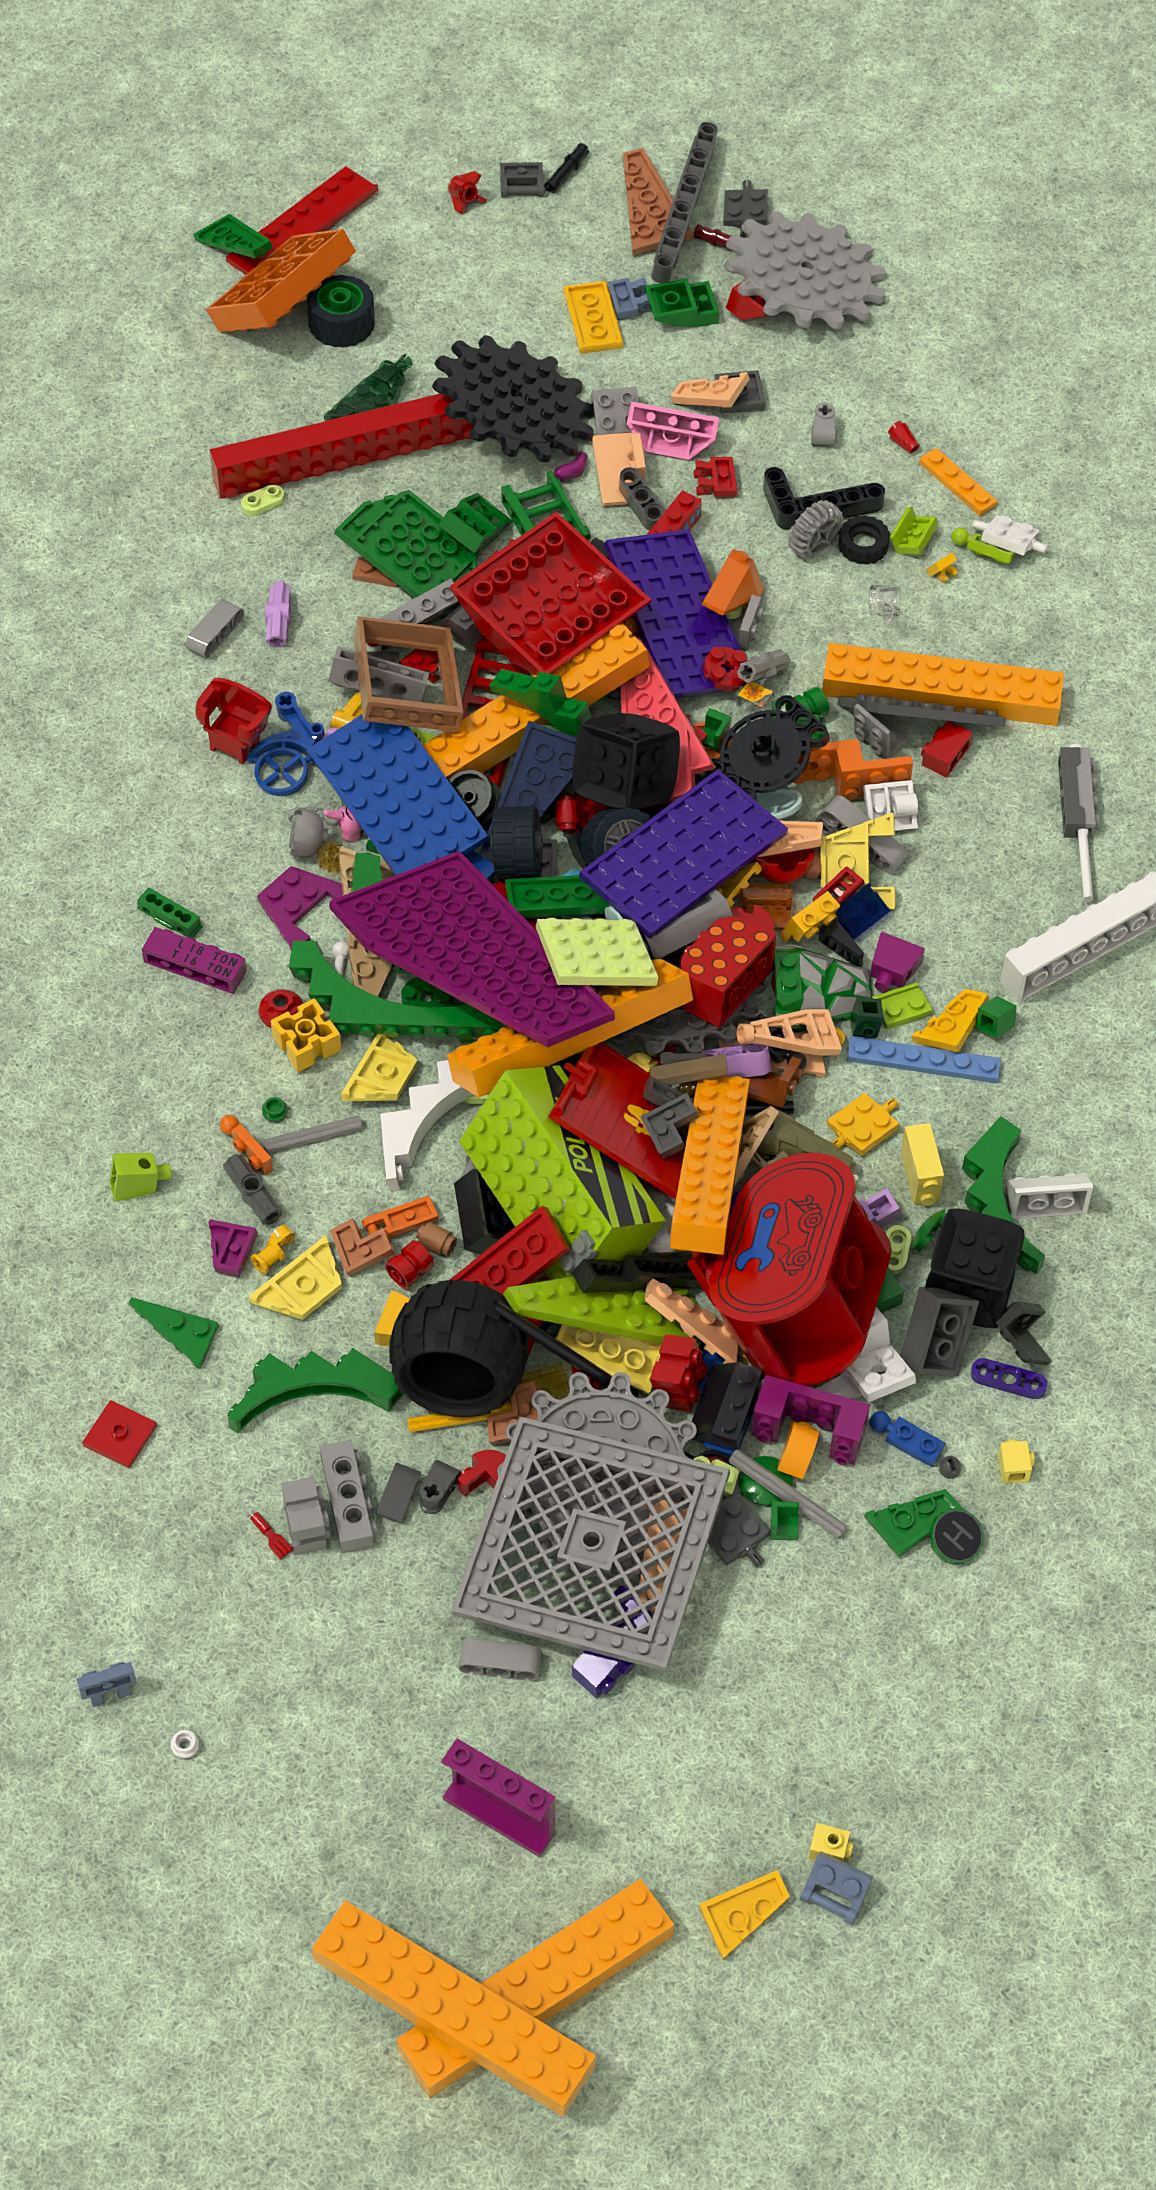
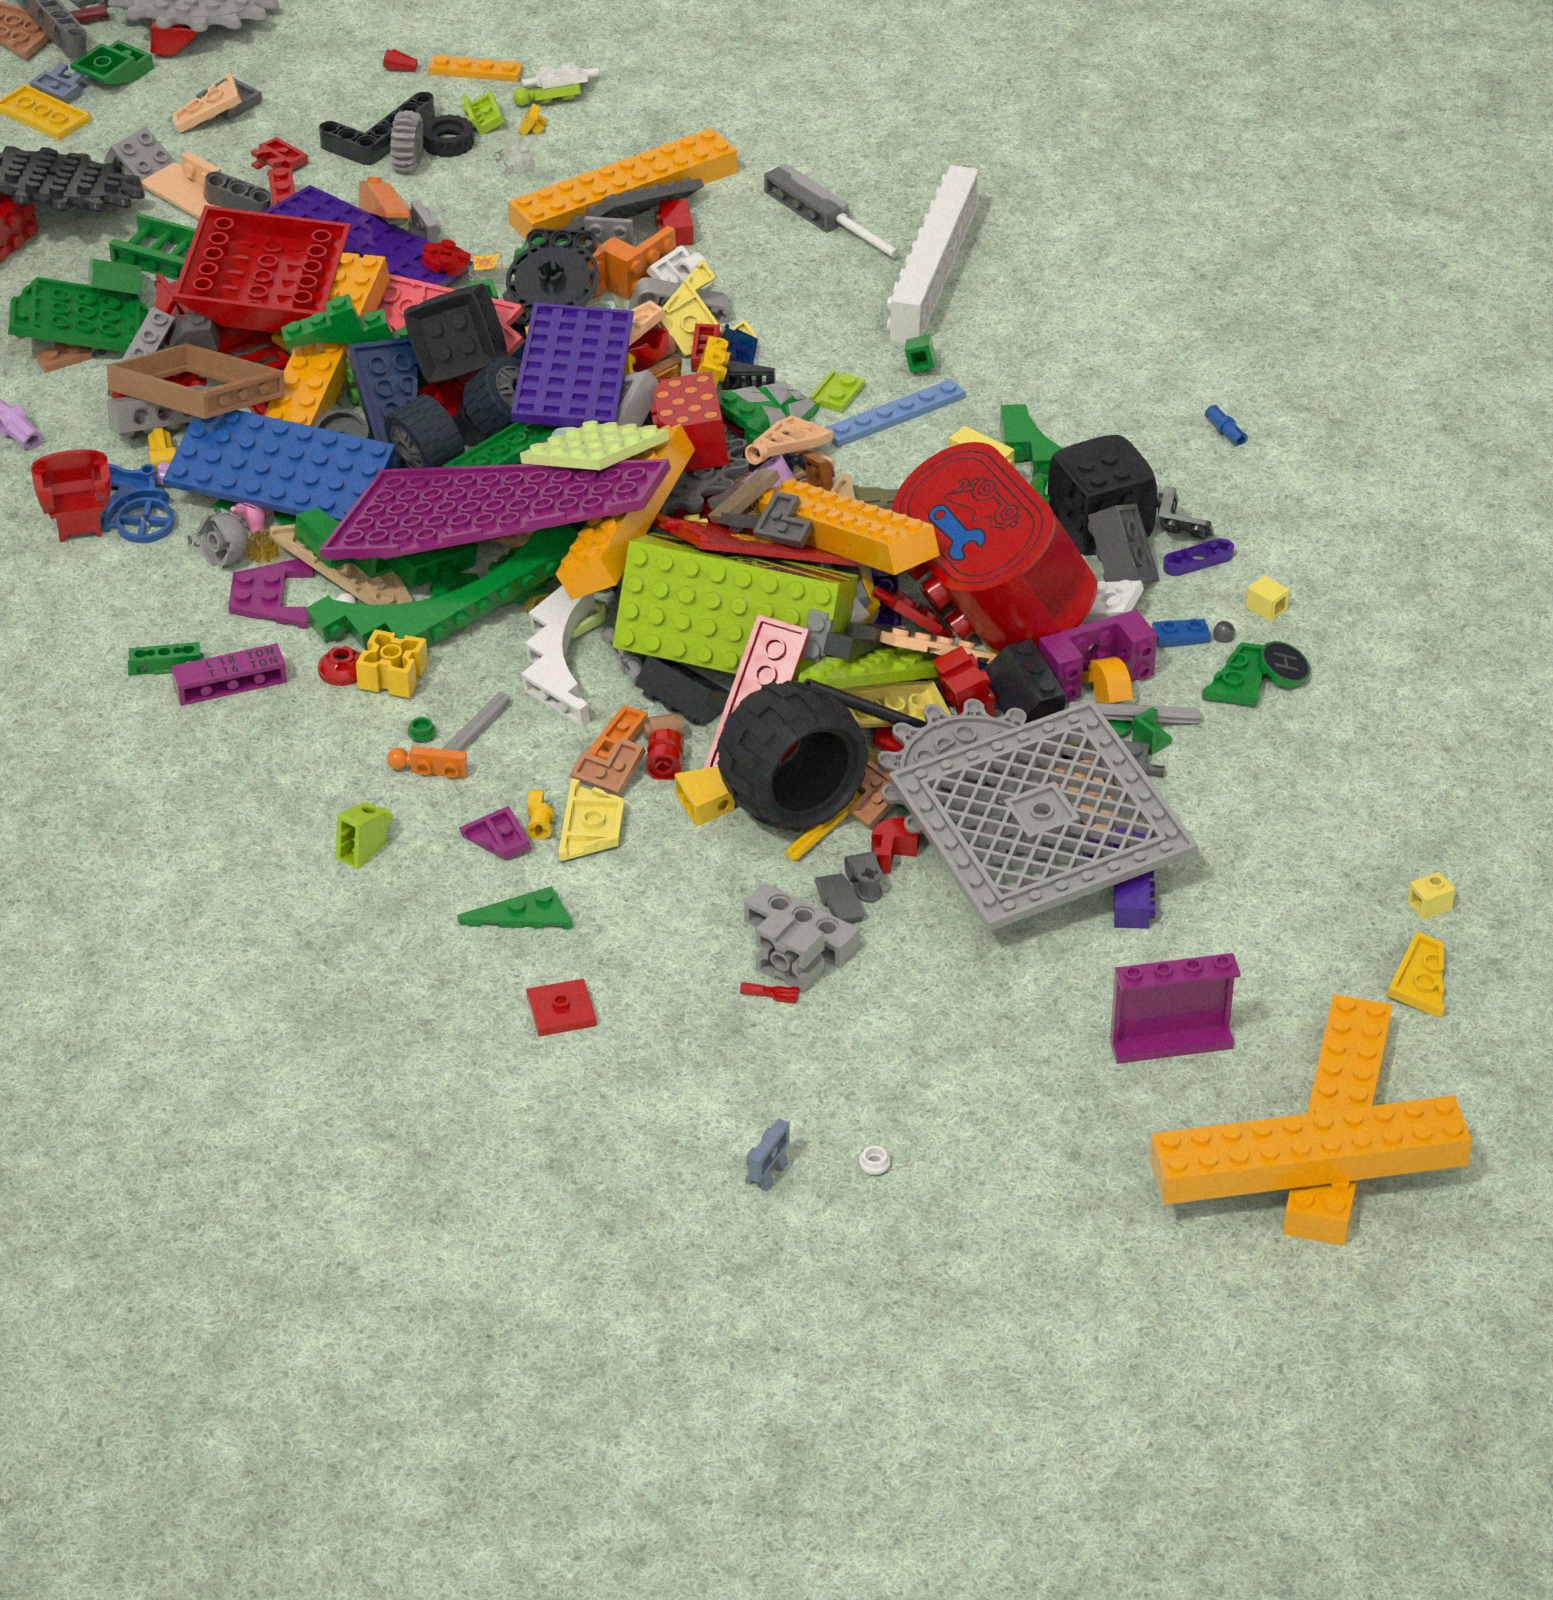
camera: 40 degrees left, 15 degrees down
(245, 1179) = (471, 786): dark grey piece -> none
(313, 1375) = (706, 852): green arch -> none
(381, 1072) = (483, 654): light yellow wing -> none
(501, 1659) = (1051, 946): light grey beam -> none
(572, 469) = (150, 206): magenta arm -> none
(672, 431) = (214, 139): bright pink wedge -> none
(763, 665) = (473, 240): light grey piece -> none
(824, 425) = (327, 83): light grey piece -> none
(840, 1879) = (1467, 905): sand blue plate -> none
(863, 1124) = (893, 469): yellow plate -> none
(866, 1017) = (825, 405): dark green brick -> none
(894, 962) = (799, 365): magenta torso -> none
(954, 1024) = (890, 377): yellow wing -> none
(1048, 1196) = (1105, 420): white slope -> none

